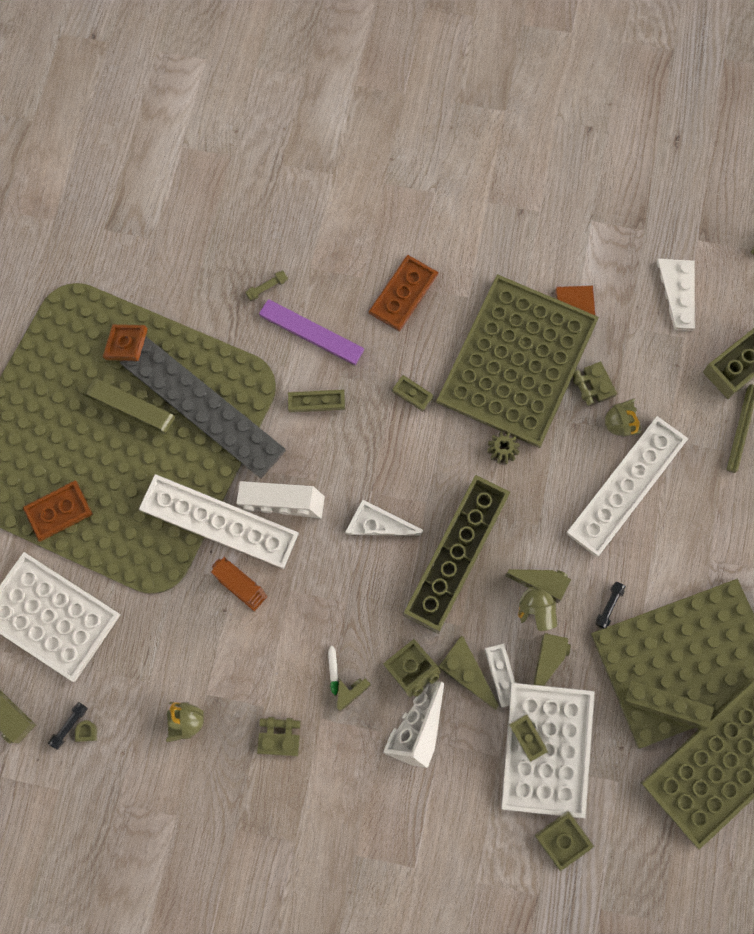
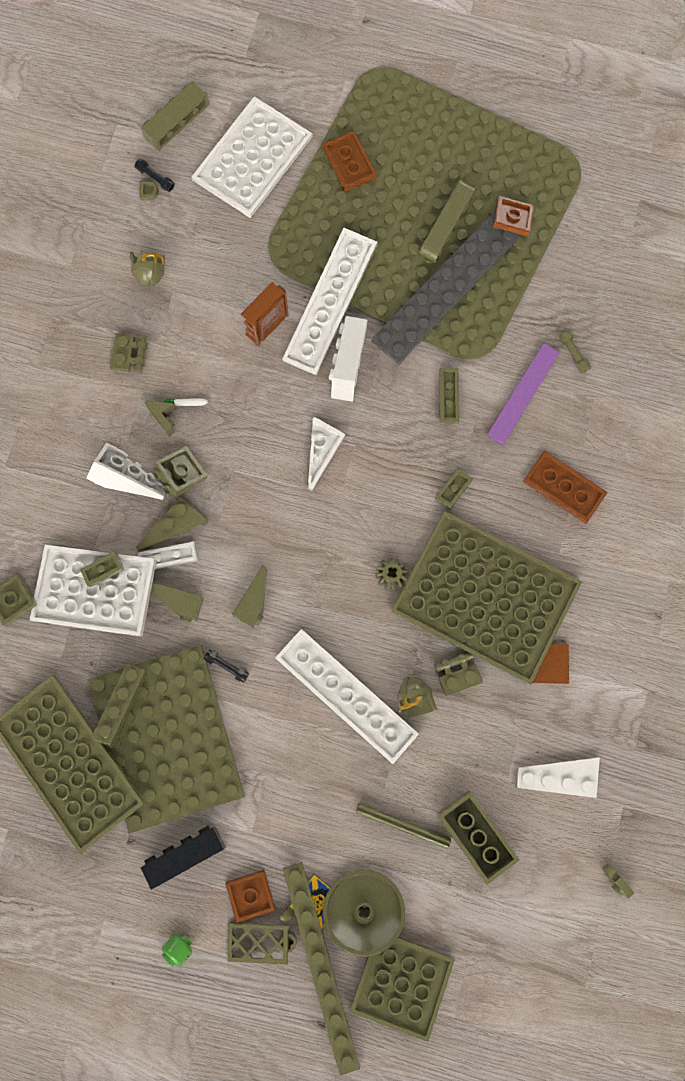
camera: 90 degrees right, 5 degrees up
(456, 554) = (285, 519): olive brick -> none
(542, 605) = (225, 593): olive helmet -> none

